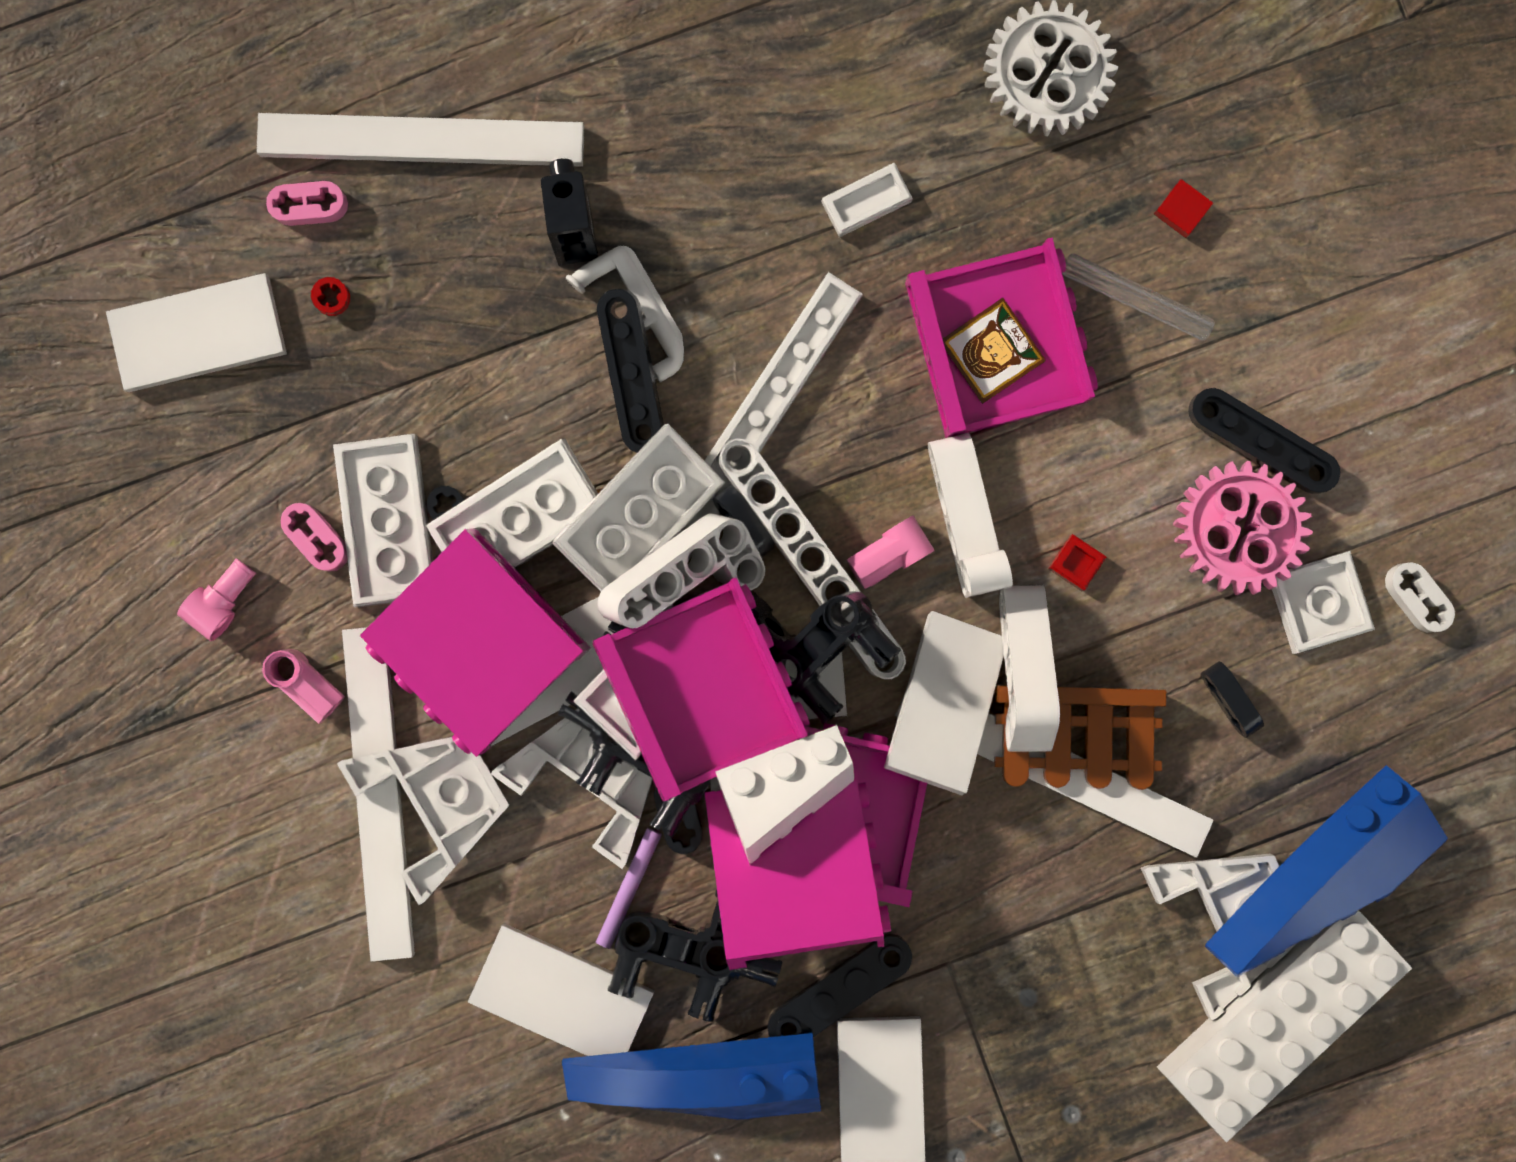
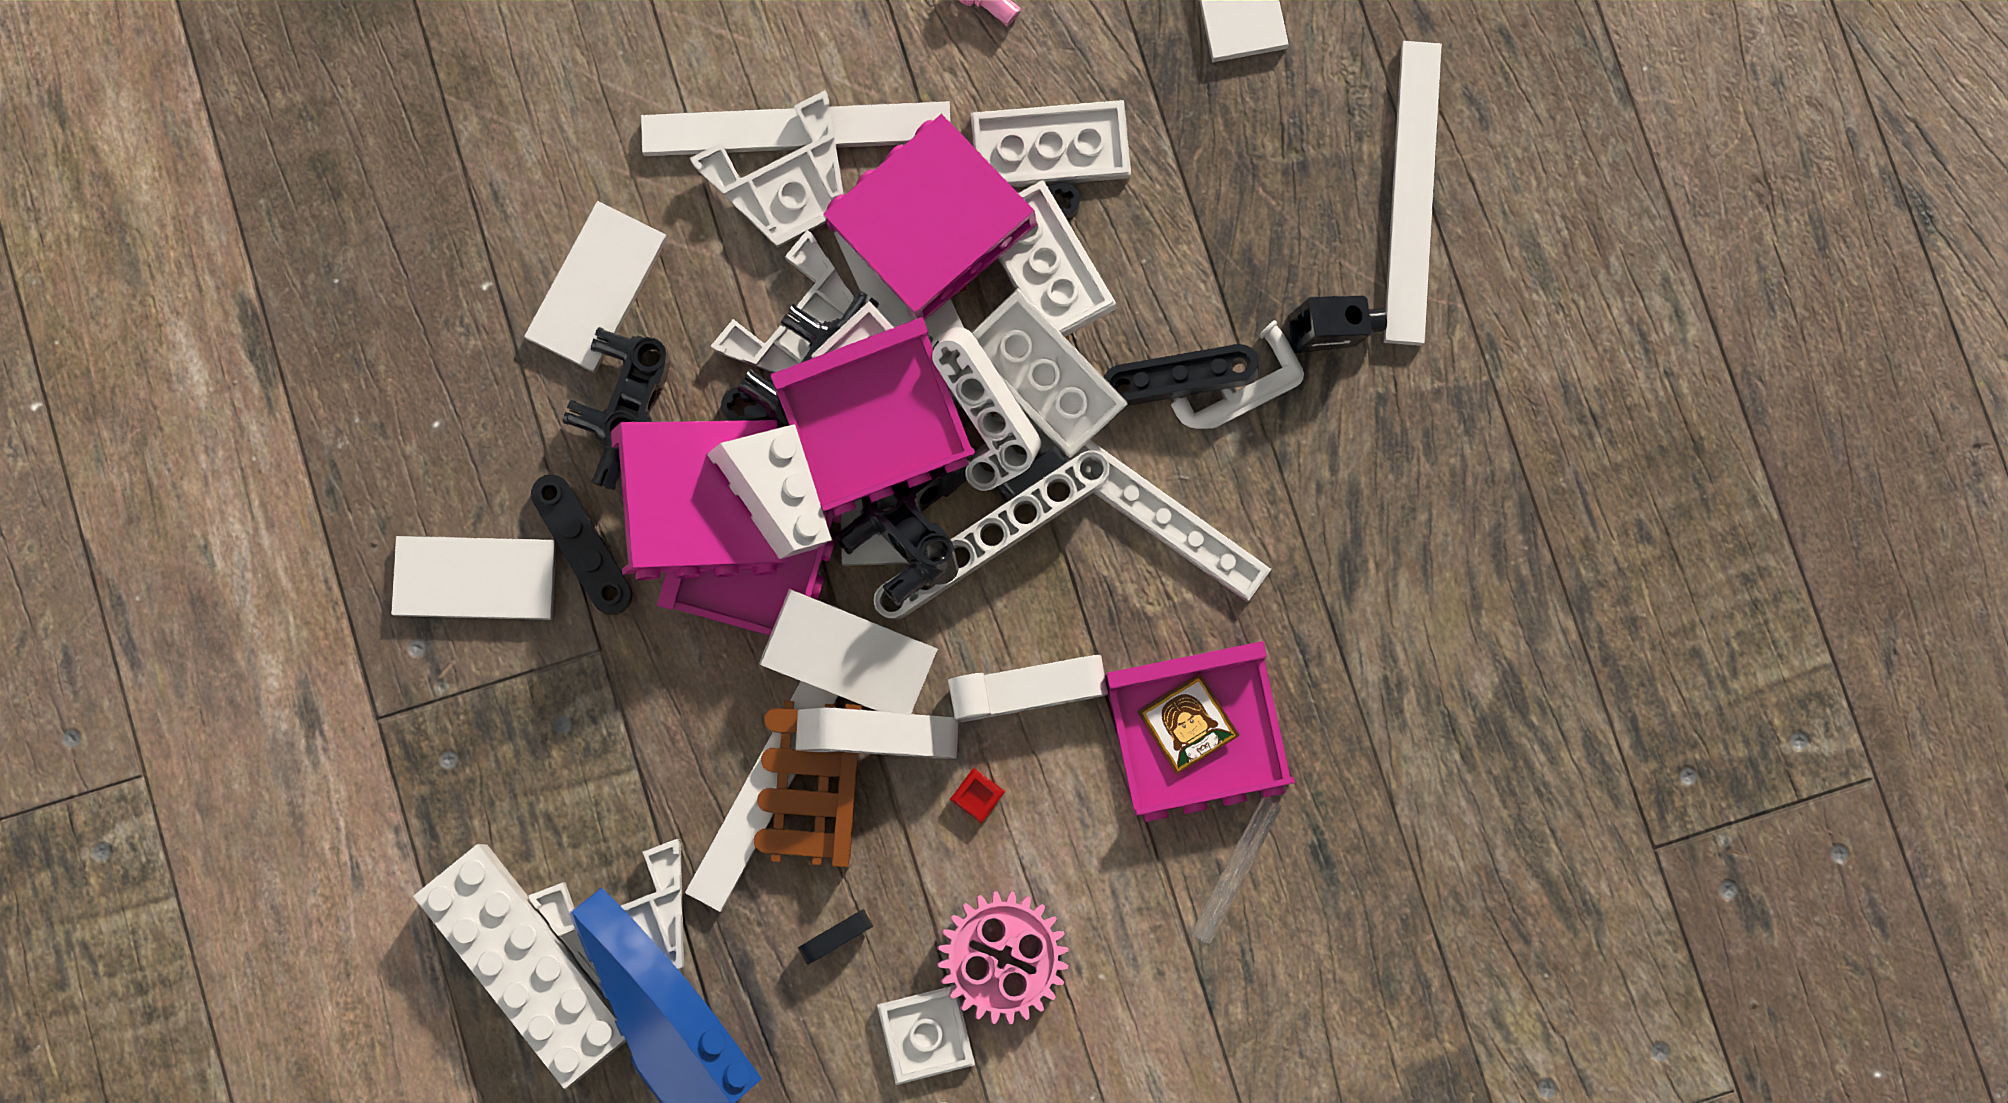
camera: 90 degrees right, 5 degrees down
(306, 194) = (1345, 85): bright pink beam -> none
(306, 685) = (898, 66): bright pink piece -> none
(307, 543) = (1043, 87): bright pink beam -> none
(318, 295) = (1267, 92): red bush -> none
(628, 888) = (693, 353): lavender bar -> none
(705, 1079) = (508, 421): blue wedge -> none
(866, 200) = (1341, 611): white tile -> none
(897, 549) = (999, 621): bright pink piece -> none
(1081, 87) = (1446, 825): white gear -> none
(1183, 208) = (1323, 921): red tile -> none
(1264, 441) = (1087, 986): black plate -> none

